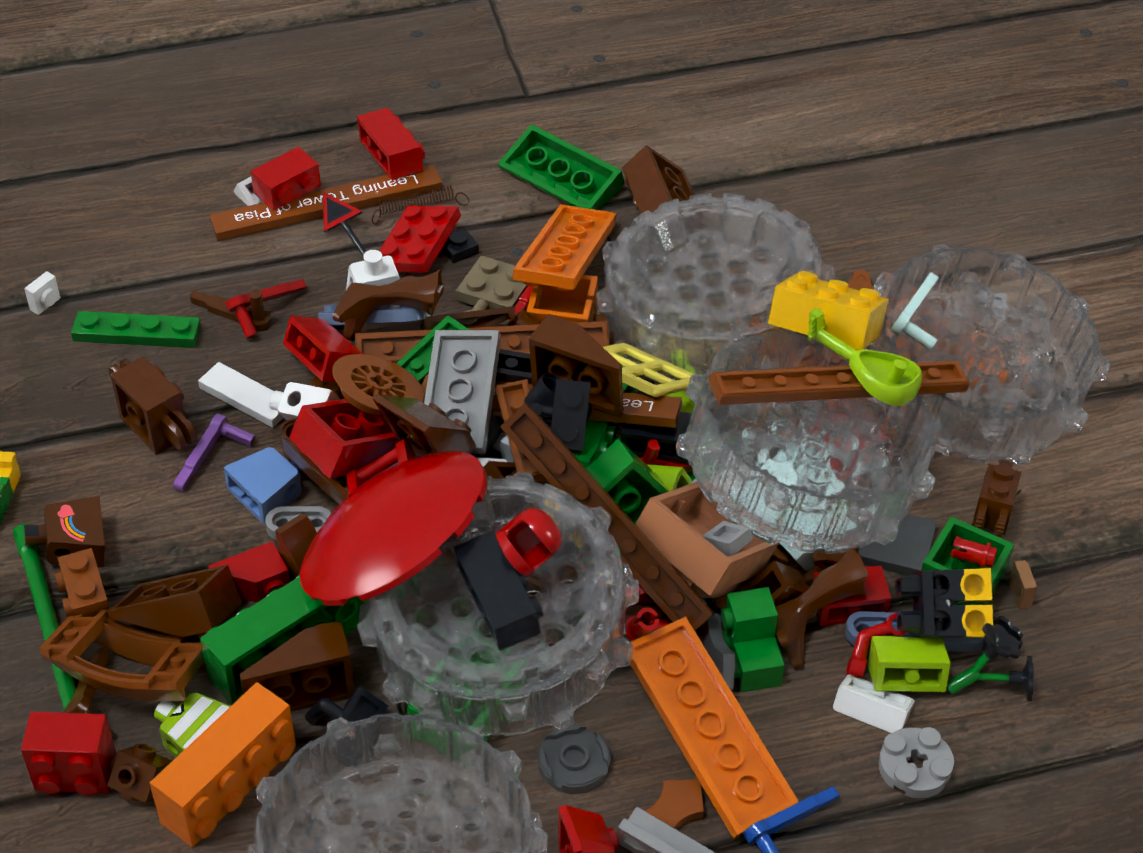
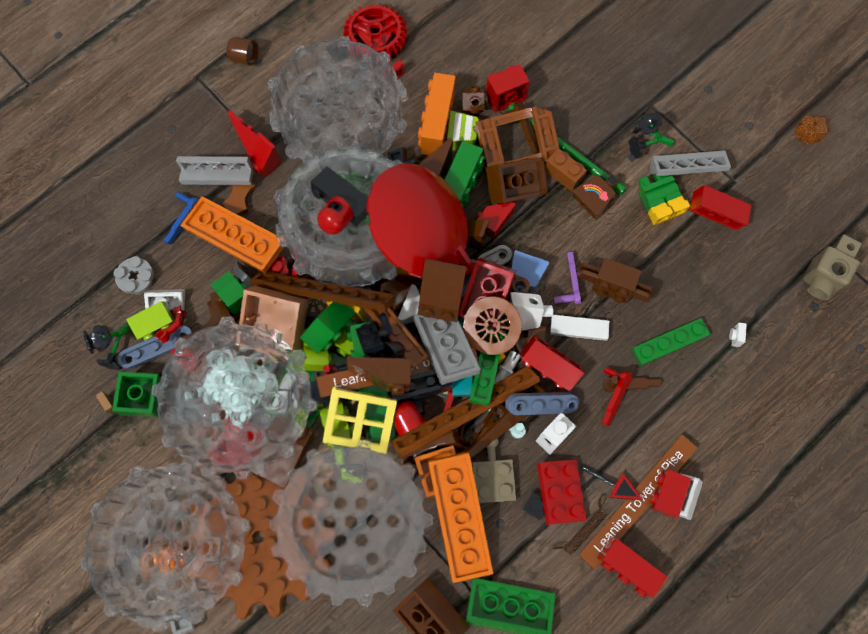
camera: 155 degrees right, 25 degrees up
(363, 299) = (519, 403): reddish brown animal -> none
(641, 623) = (281, 254): red pin -> none
(729, 537) = (256, 314): light grey plate -> none
(821, 383) = (222, 426): dark orange tile -> none
(849, 313) = (250, 481): yellow brick -> none
(882, 374) = (198, 440): lime piece -> none
(909, 328) = (206, 505): light aqua piece -> none
(935, 599) = (135, 347): black hips -> none
(976, 552) = (129, 386): red pin -> none
(997, 498) = (133, 444): reddish brown hinge -> none

